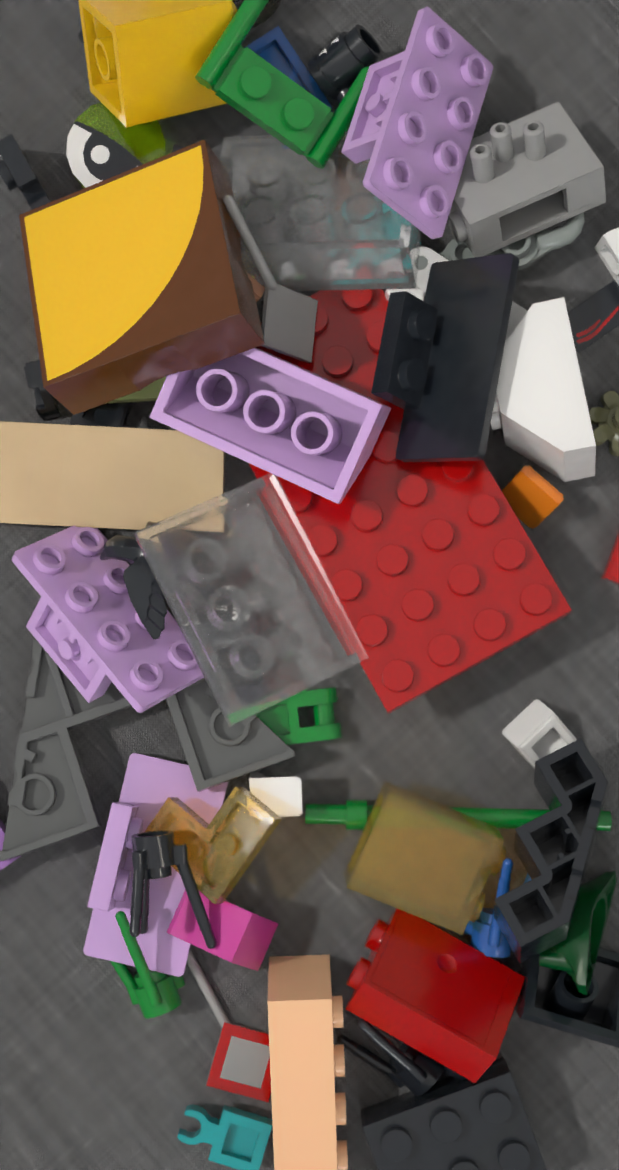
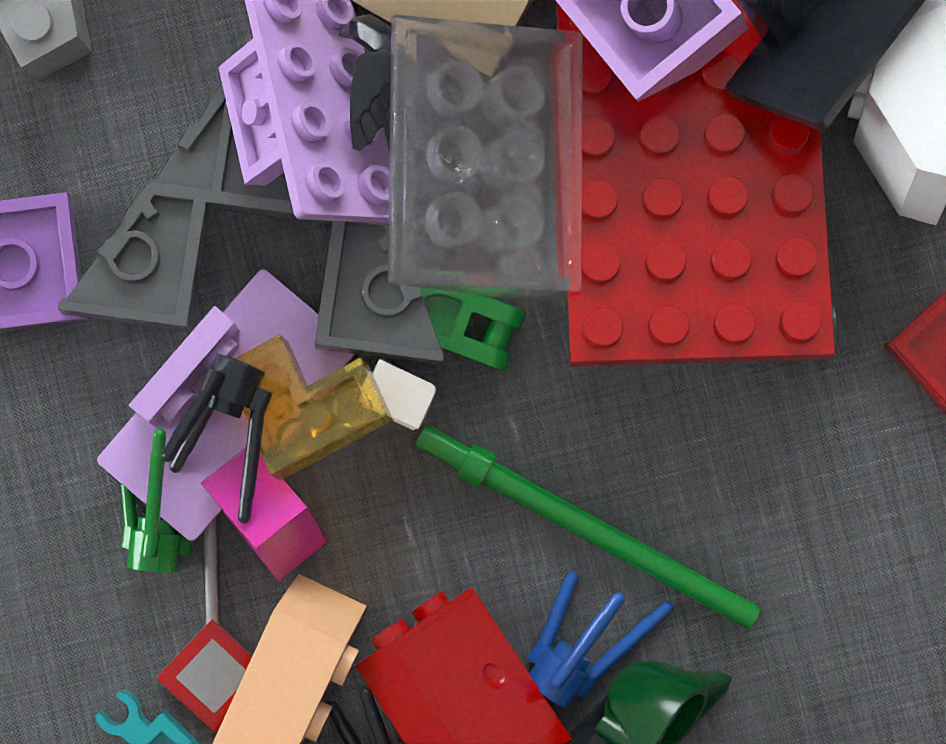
camera: 25 degrees right, 0 degrees up
(425, 858) = (528, 549): clear yellow brick -> none
(531, 496) = (854, 213): orange slope -> none
(537, 732) = (725, 486): white slope -> none
(553, 851) = (675, 612): black brick -> none

